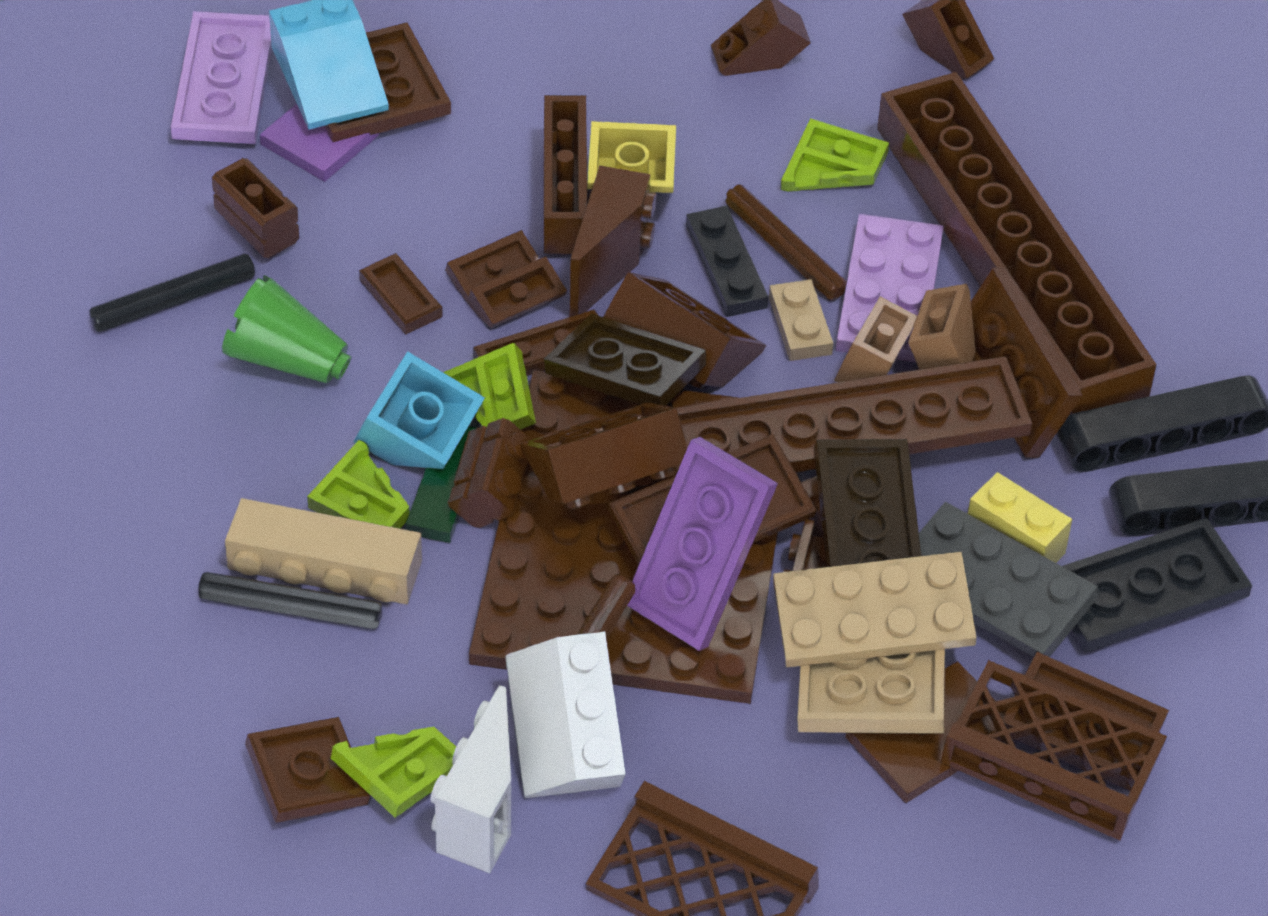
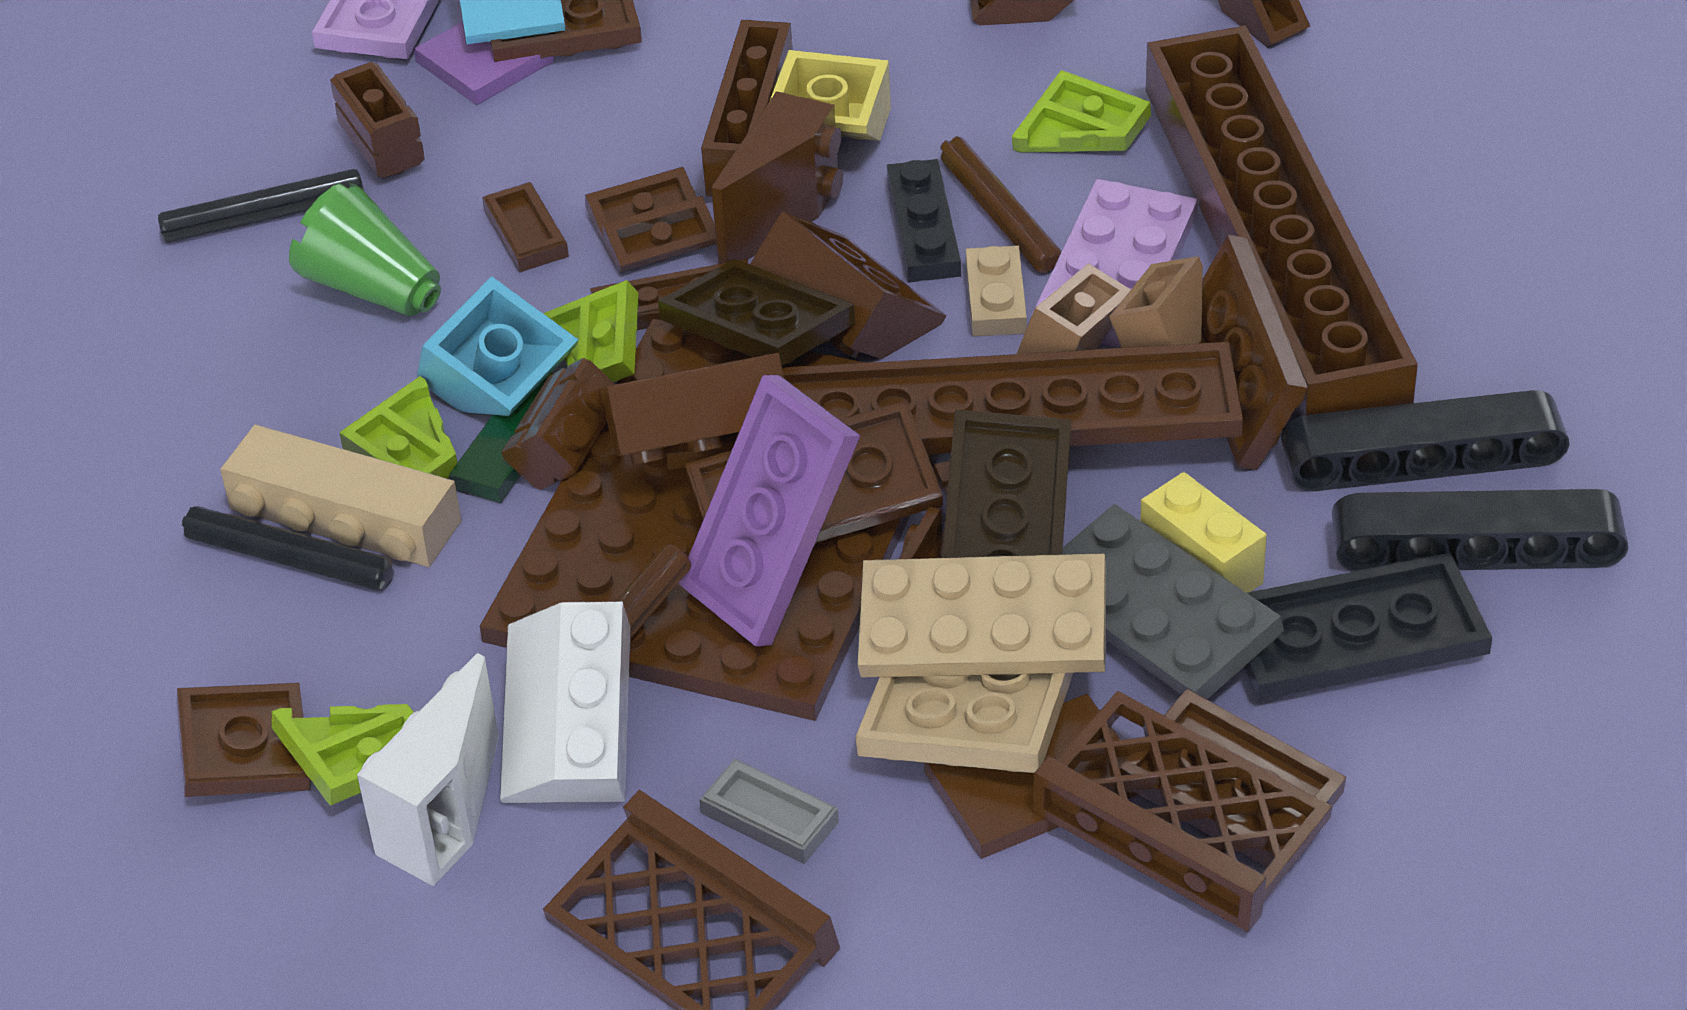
camera: 15 degrees right, 5 degrees down
(736, 783) = (769, 811): none -> light grey tile

